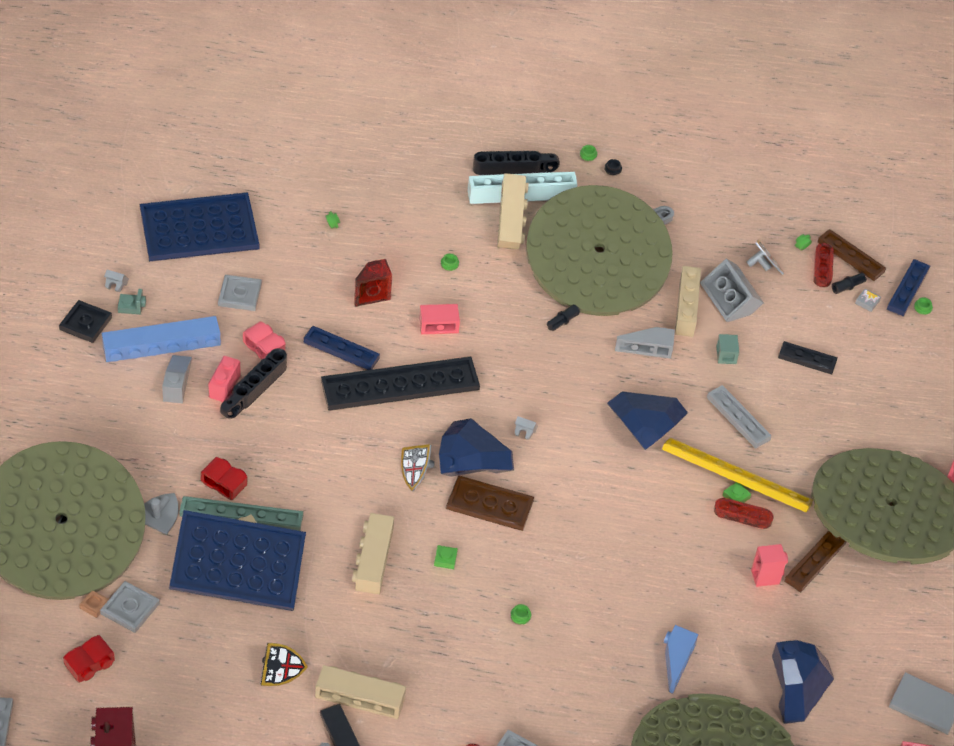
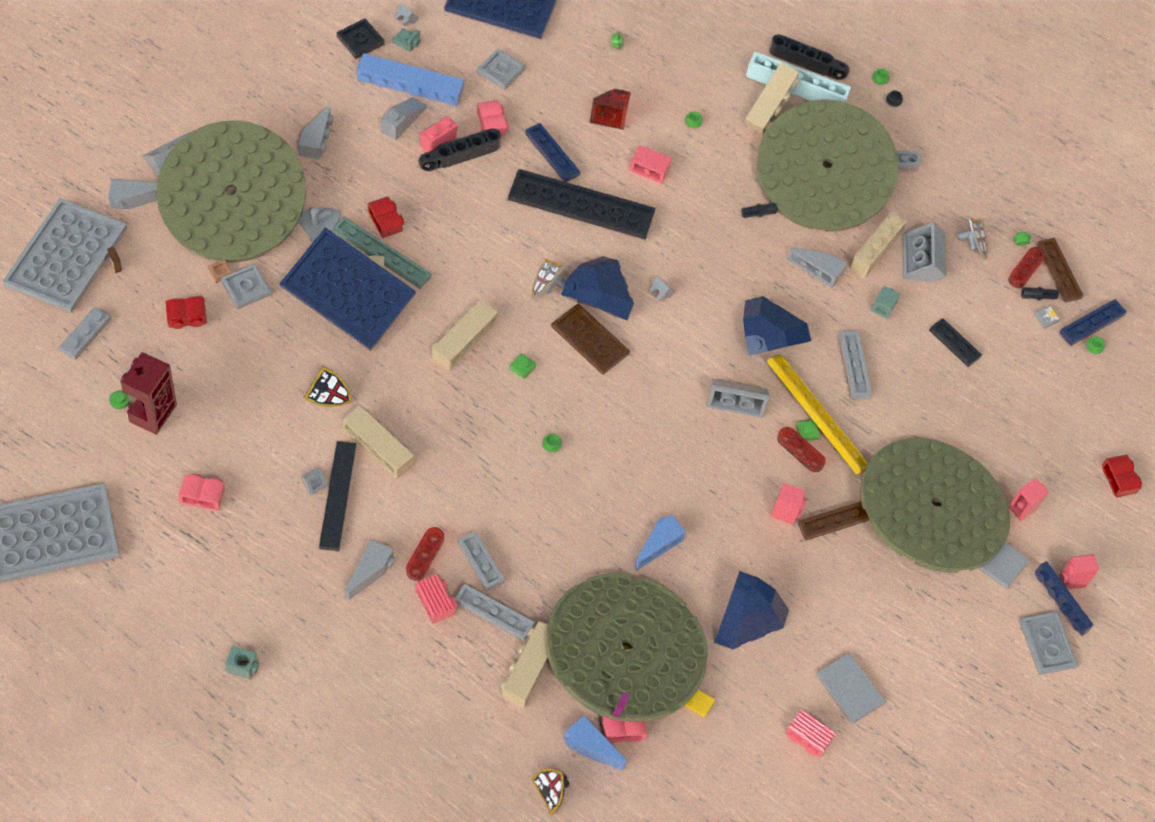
camera: 25 degrees right, 10 degrees up
(104, 430) = (313, 137): none -> light grey slope
(659, 493) = (737, 398): none -> light grey slope

